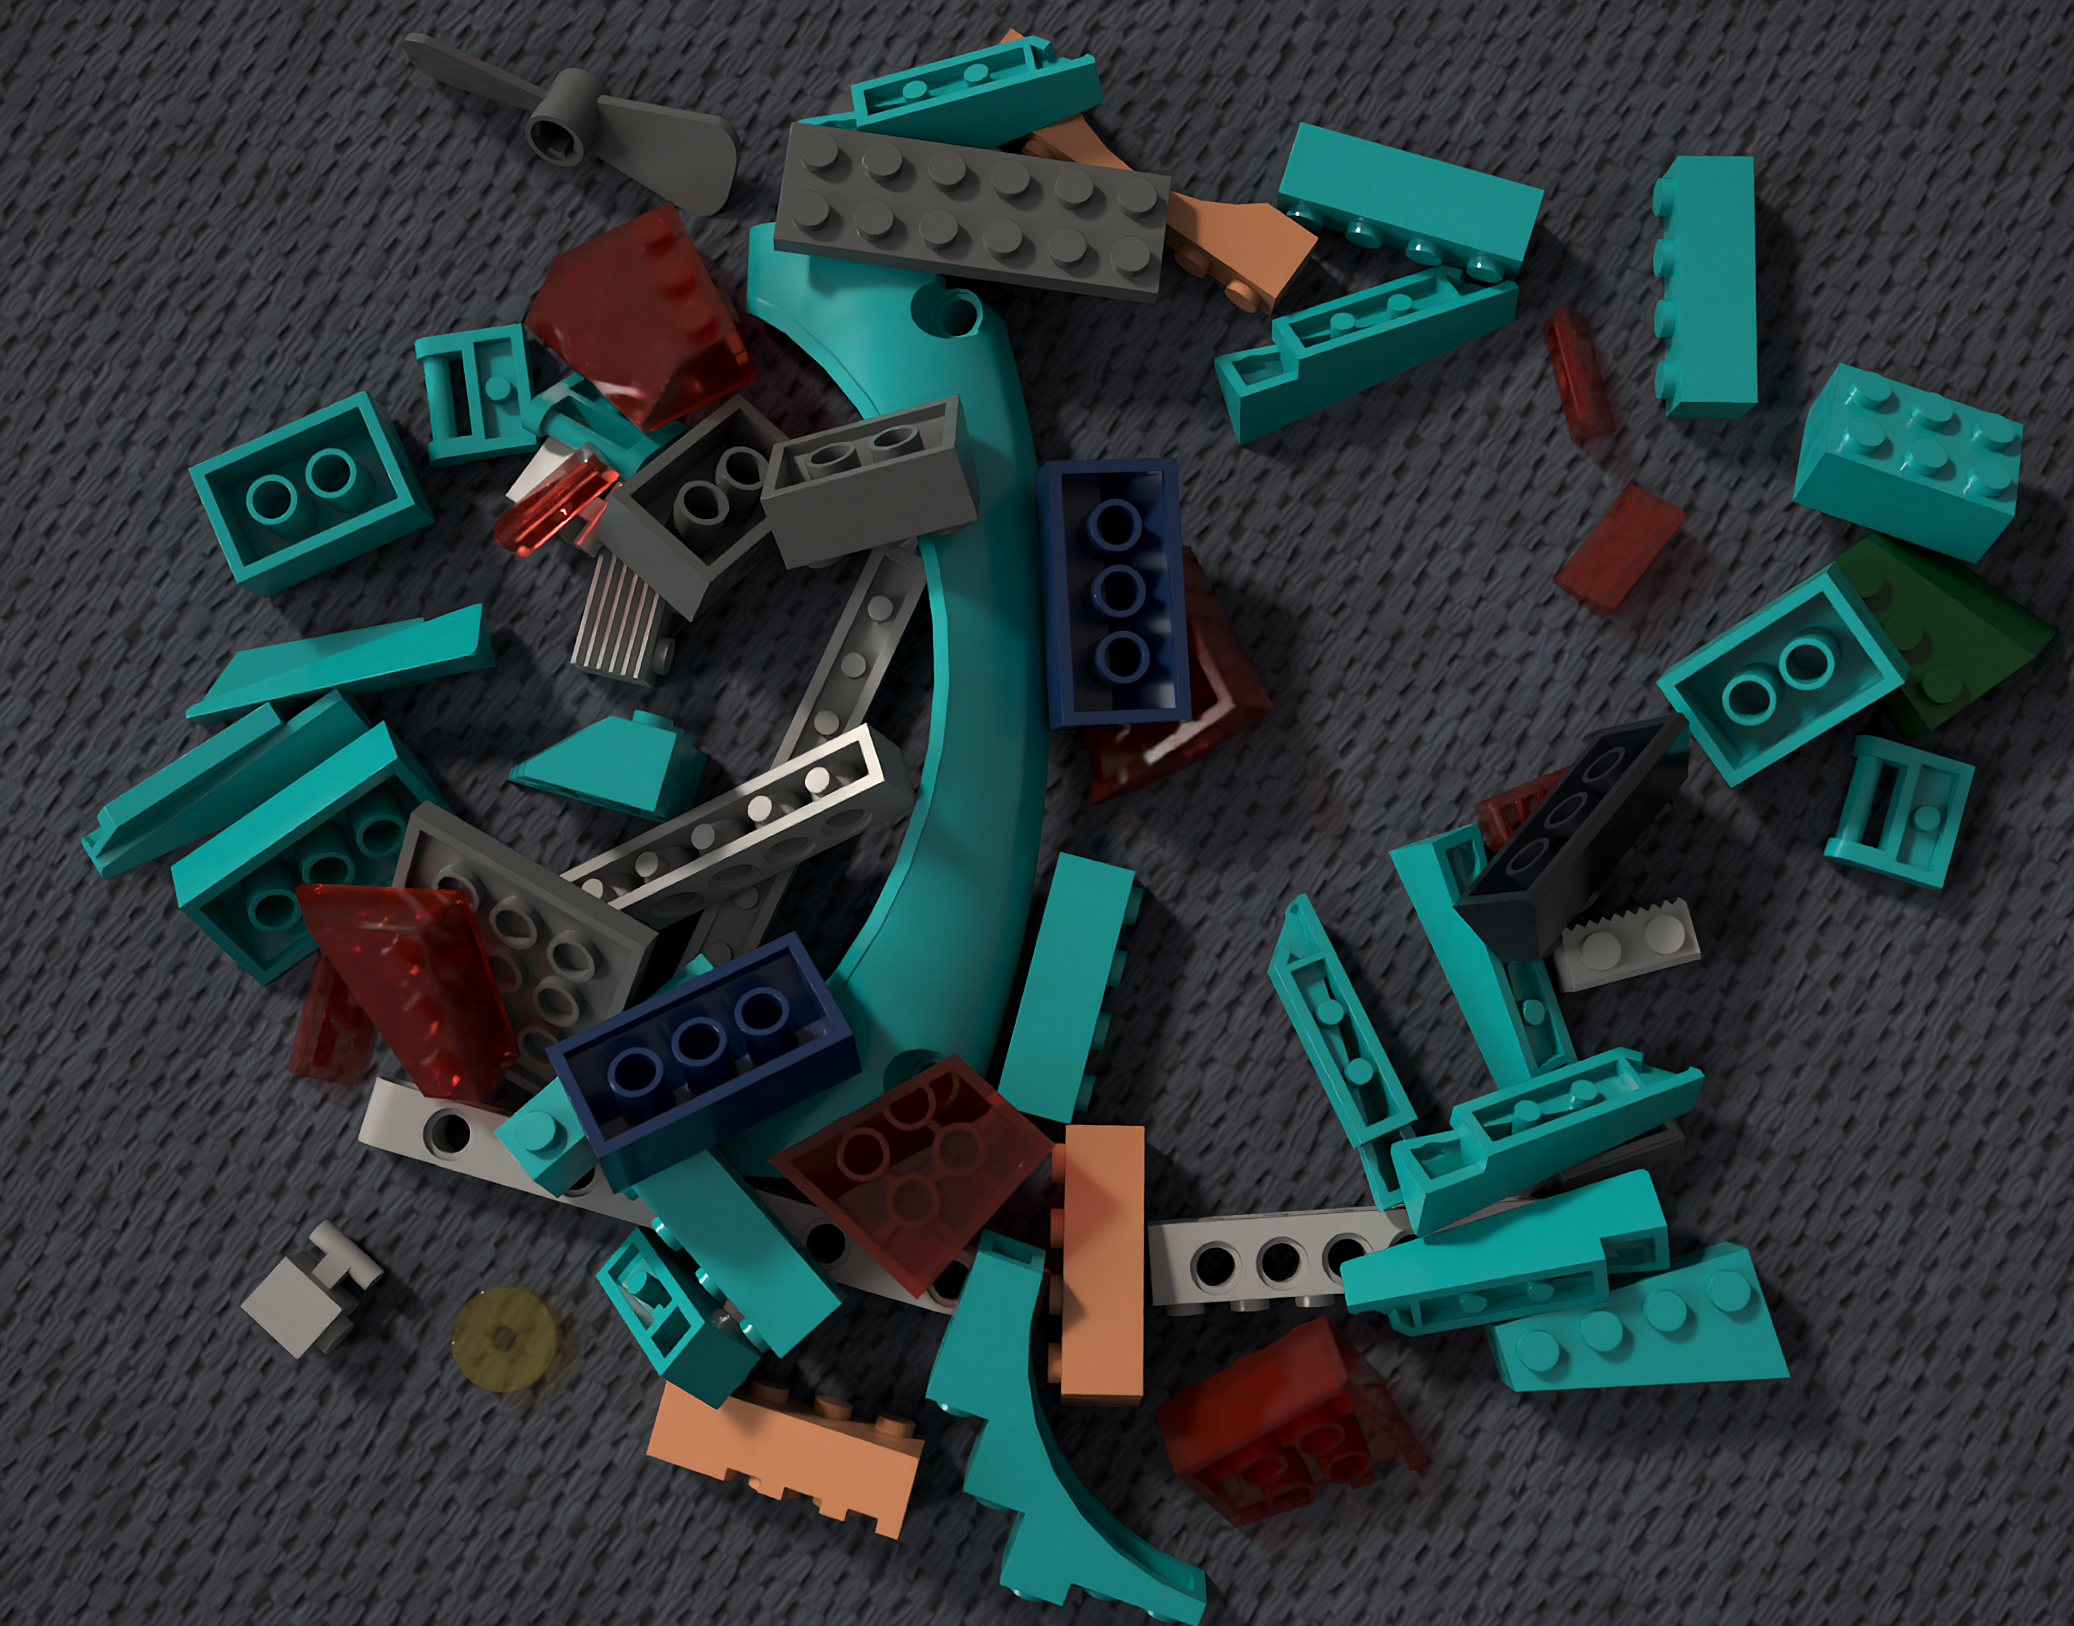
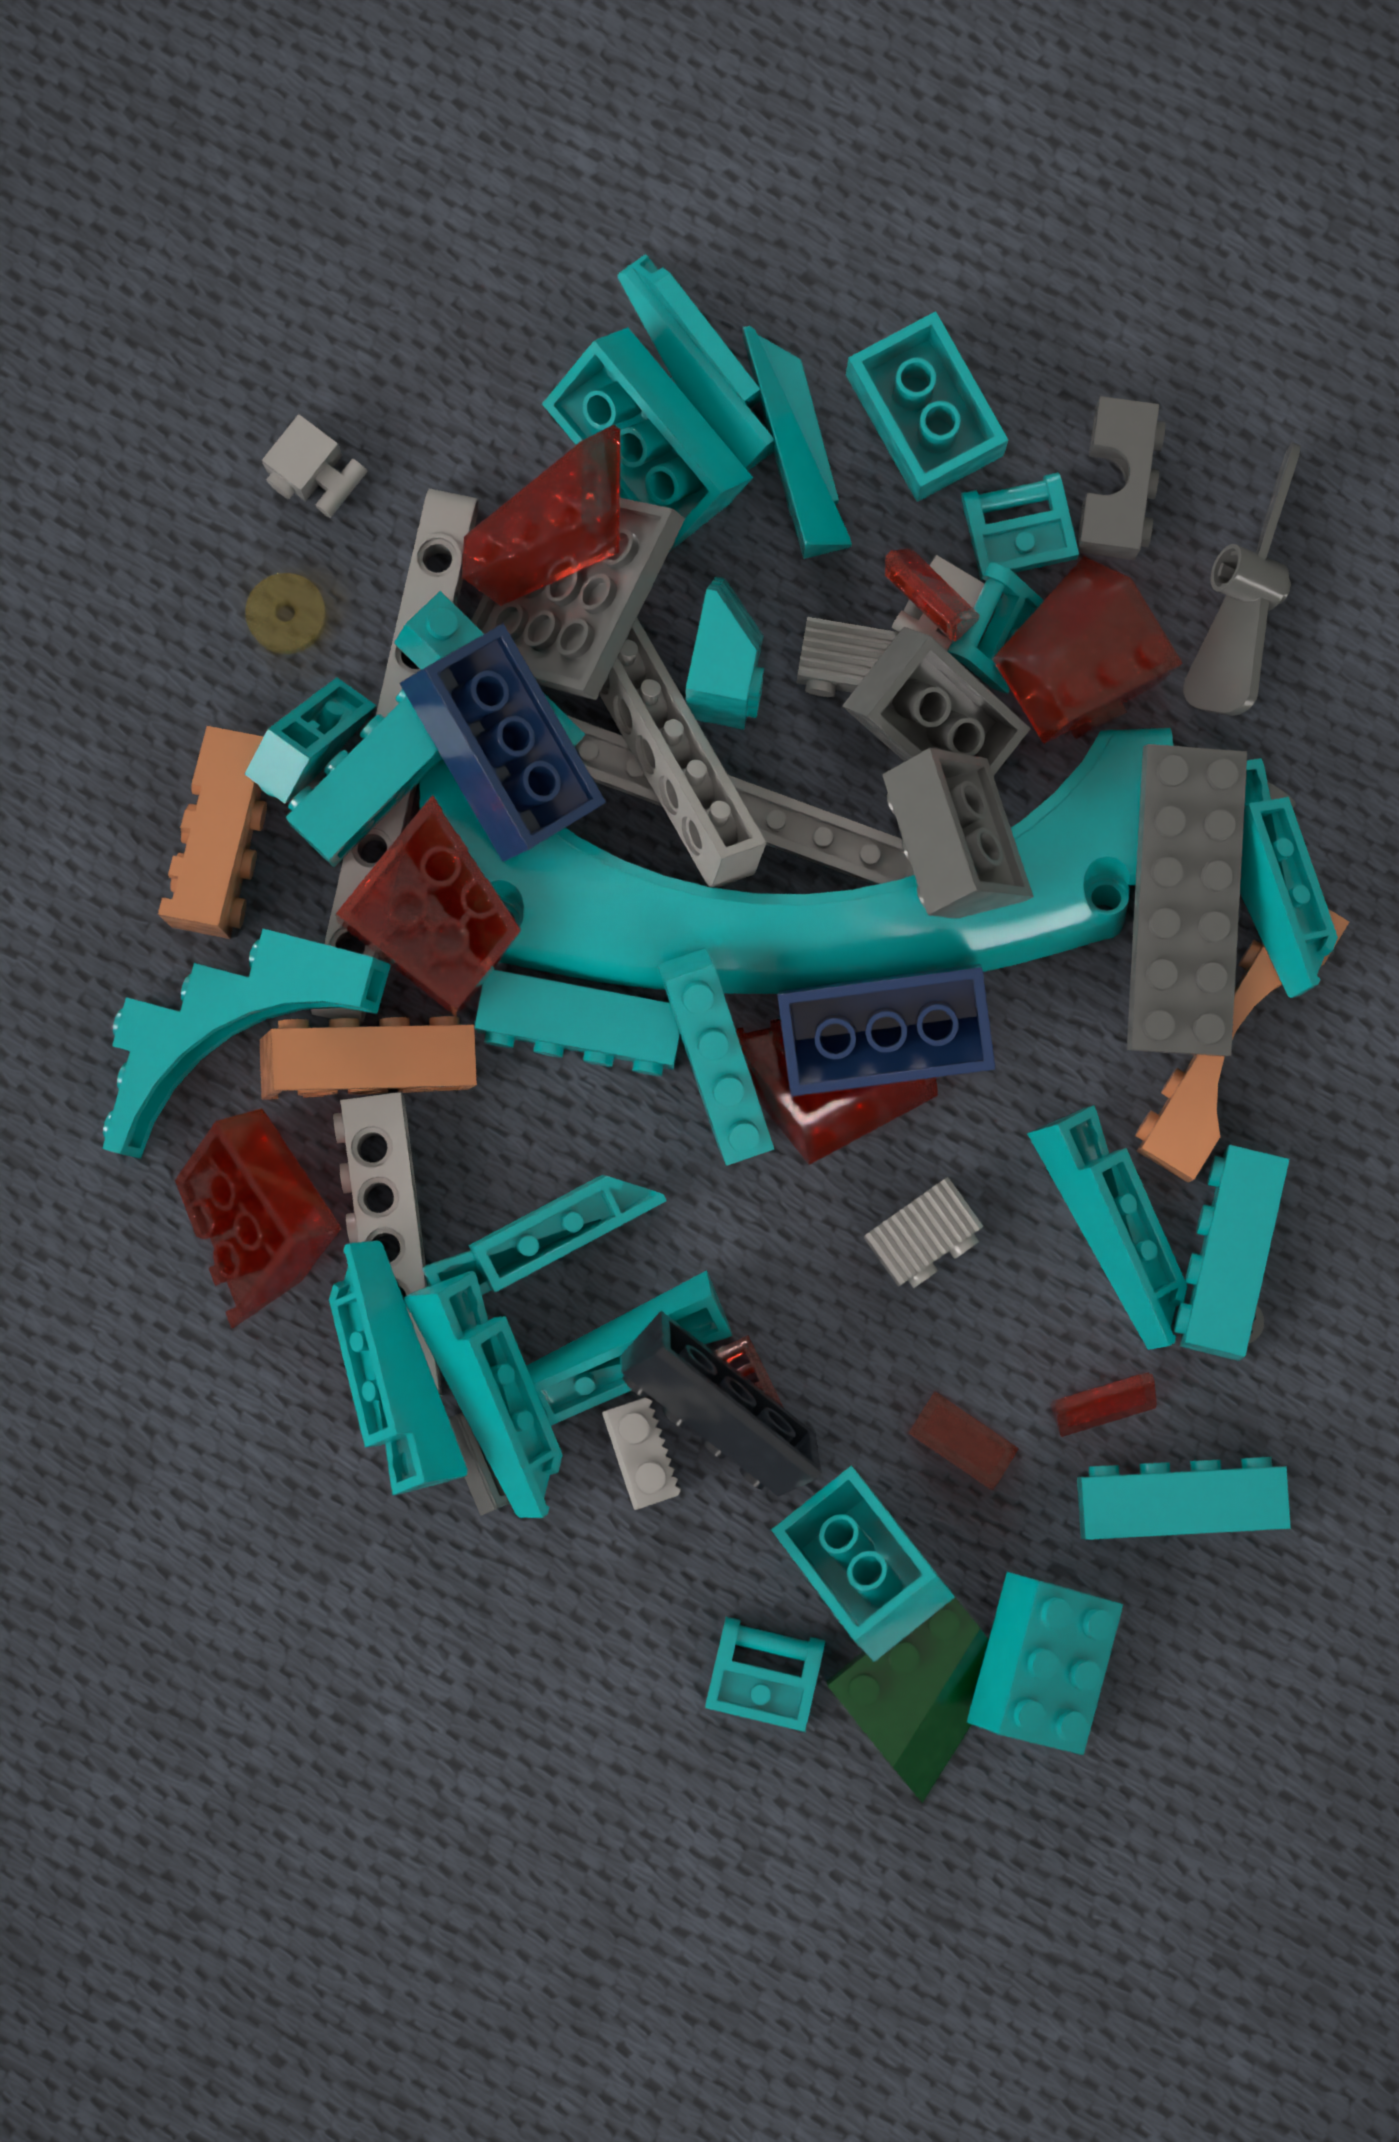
camera: 80 degrees right, 0 degrees up
(329, 1029) = (512, 458): clear red slope -> none
(378, 251) = (1127, 436): none -> dark grey arch
(1129, 814) = (715, 1056): none -> teal brick
(1362, 575) = (923, 1233): none -> light grey brick
(1659, 1327) = (346, 1487): teal wedge -> none

